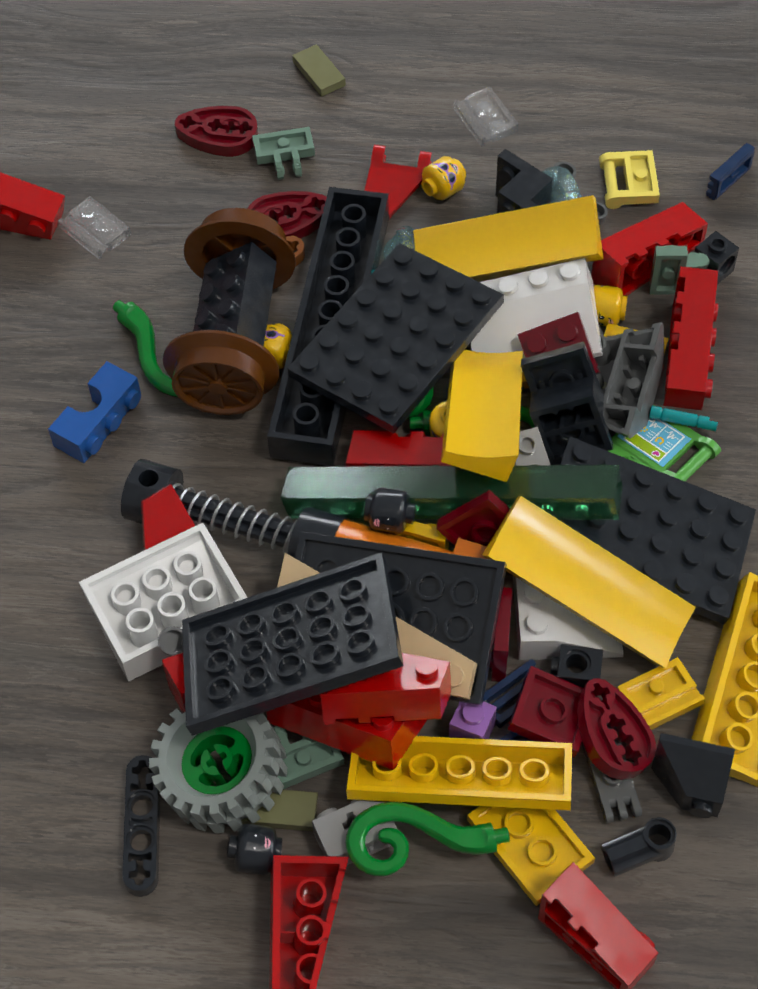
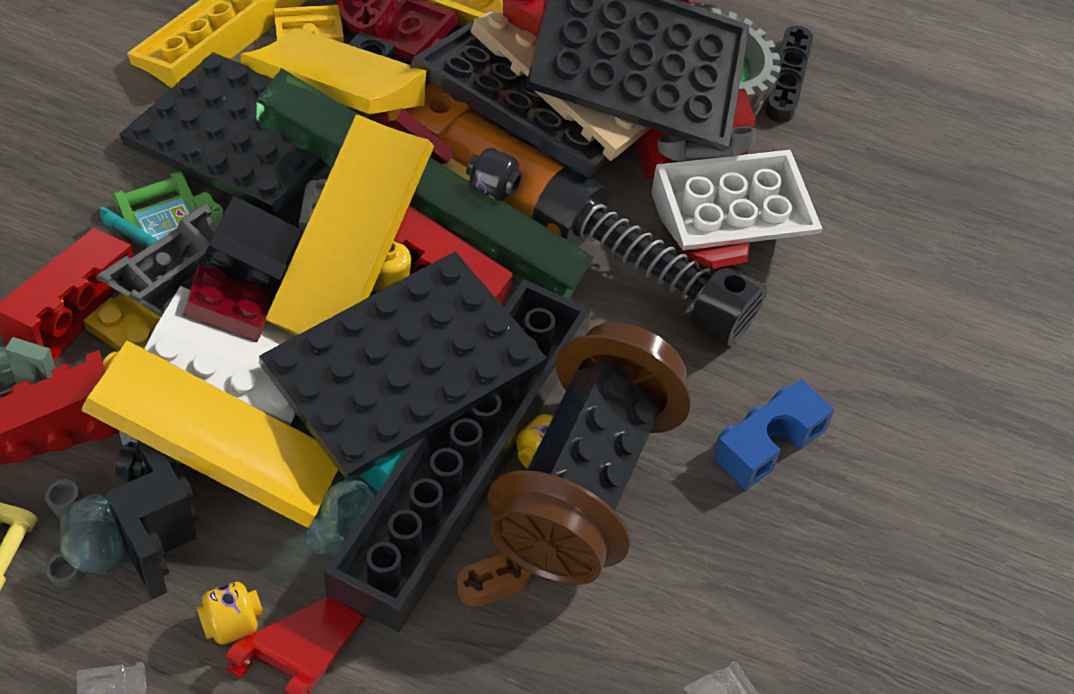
camera: 170 degrees left, 5 degrees down
(140, 325) = (698, 533): green plant -> none
(298, 205) = (467, 616): dark red piece -> none

